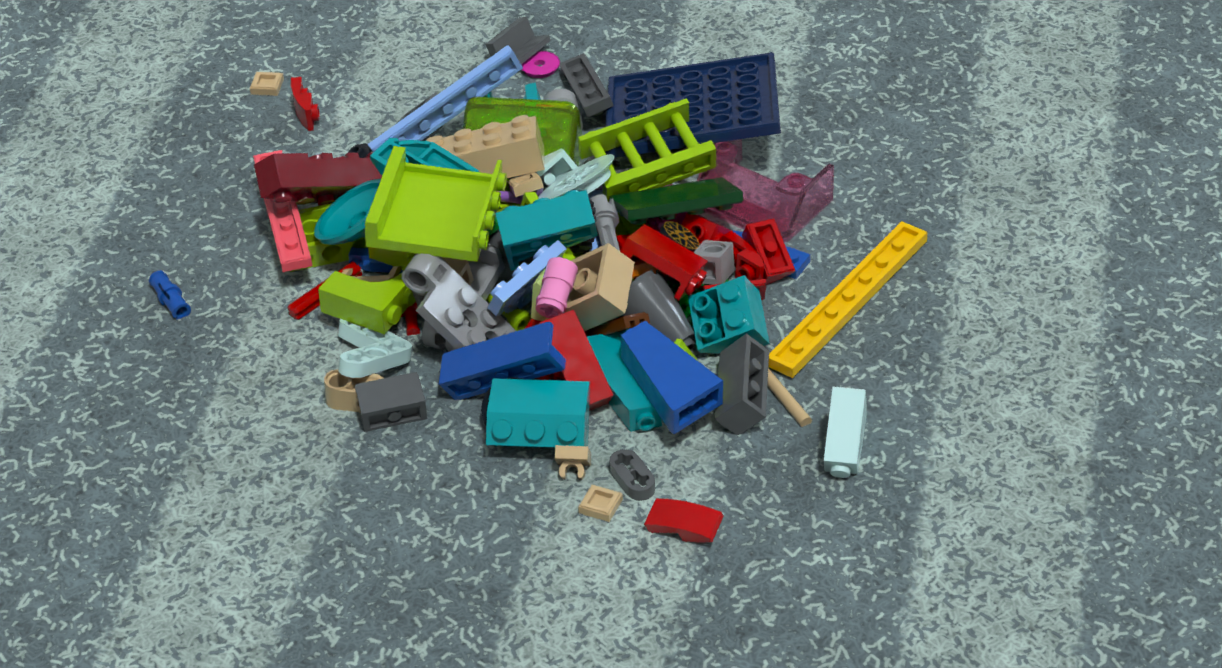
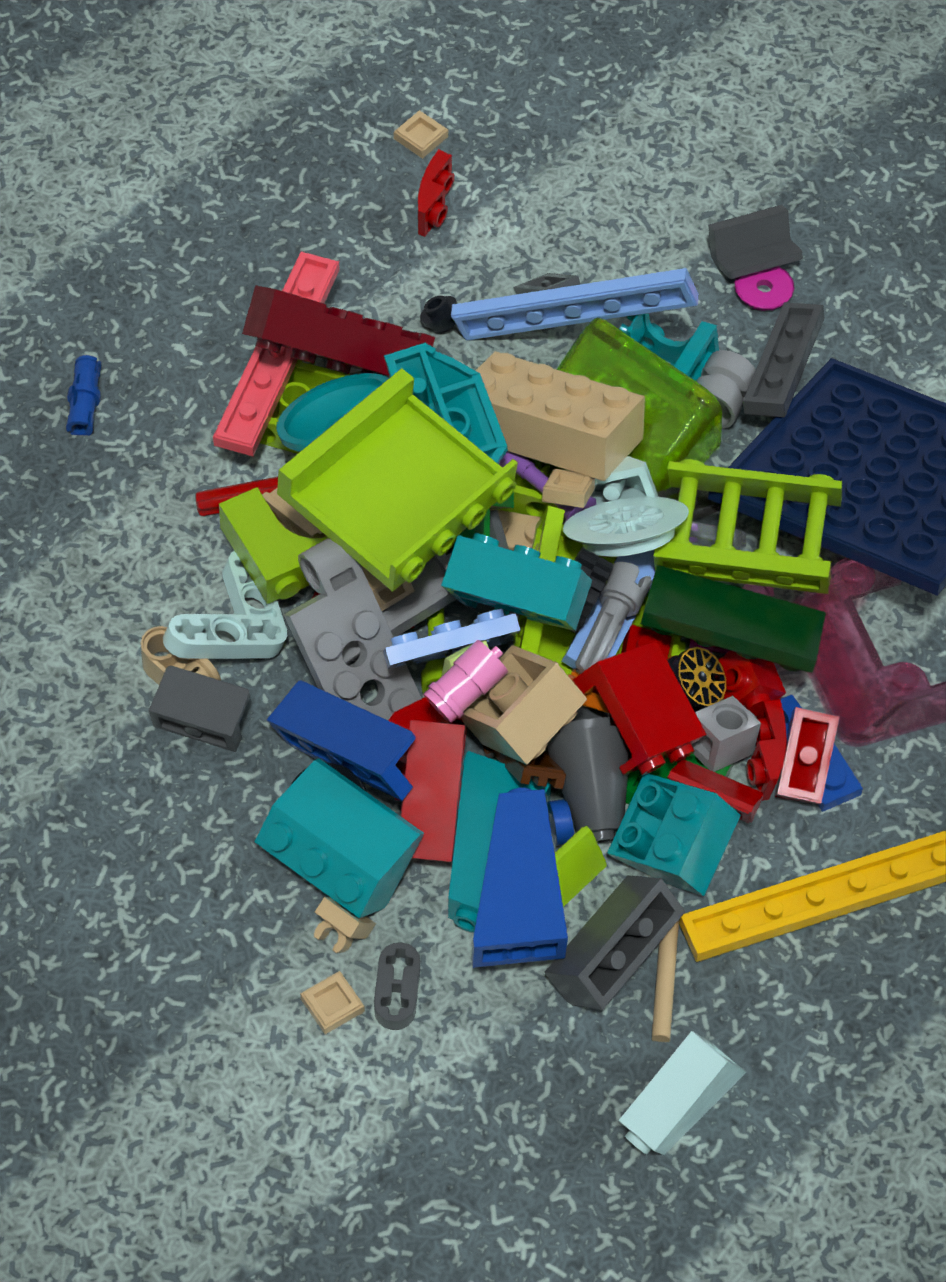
camera: 30 degrees right, 15 degrees up
(688, 519) = (400, 1094): red slope -> none

